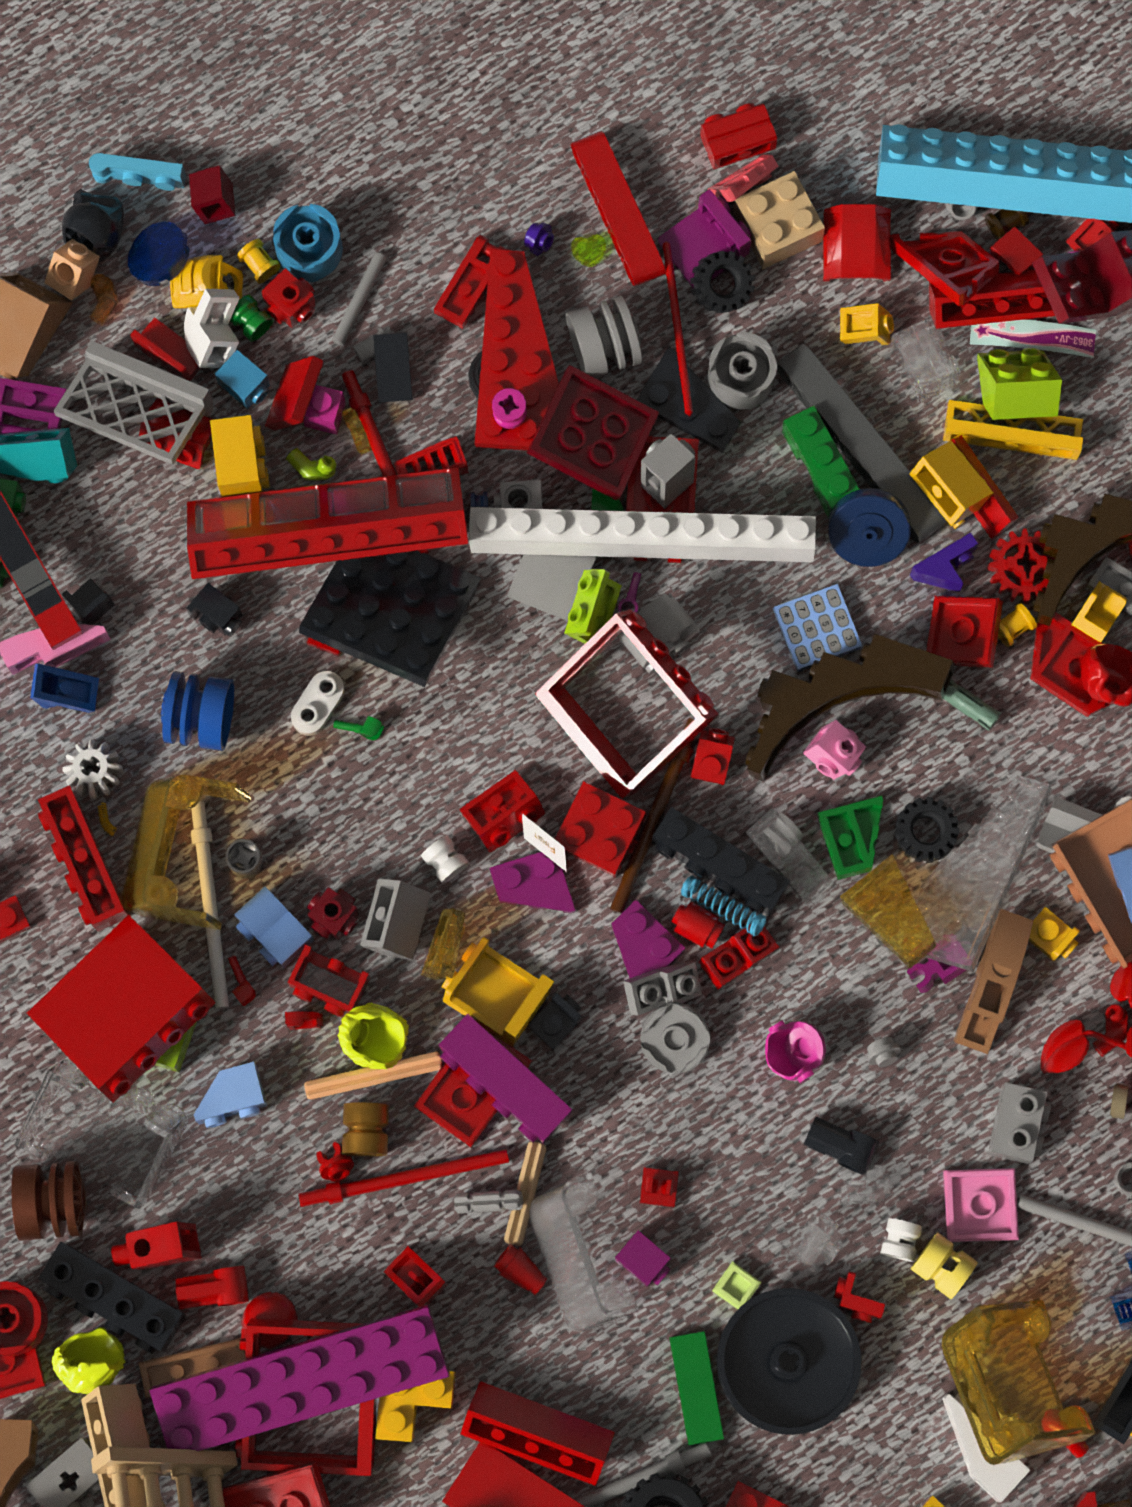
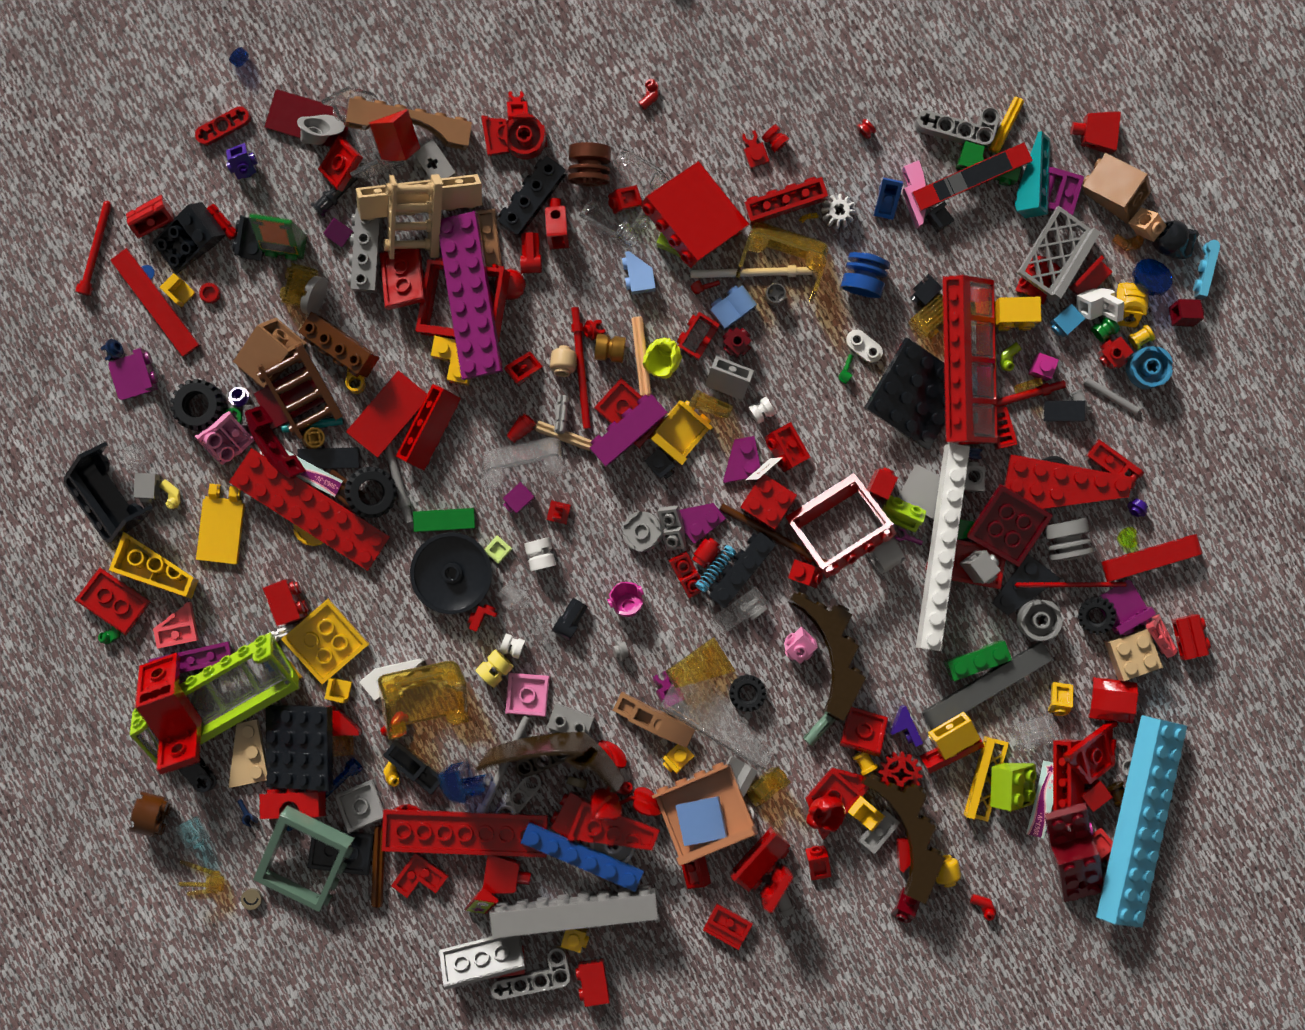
camera: 100 degrees right, 10 degrees up
(88, 1360) = (497, 180): neon yellow hair -> none
(103, 1134) = (624, 199): none -> red bracket
(260, 598) = (928, 318): none -> clear yellow brick
(294, 393) = (1054, 350): red tile -> none
(295, 1020) = (677, 319): red tile -> none
(396, 1208) = (563, 361): none -> tan head
(509, 416) = (1025, 475): dark pink wheel -> none
(547, 644) = (882, 484): none -> red brick
(736, 1209) = (540, 554): none -> white wheel
(816, 626) = (877, 645): tile -> none
(852, 835) = (749, 649): green wing -> none
(869, 527) = (932, 683): dark blue wheel -> none
(1069, 1136) = (580, 749): none -> dark brown beam
(1077, 779) = (767, 785): none -> clear yellow brick

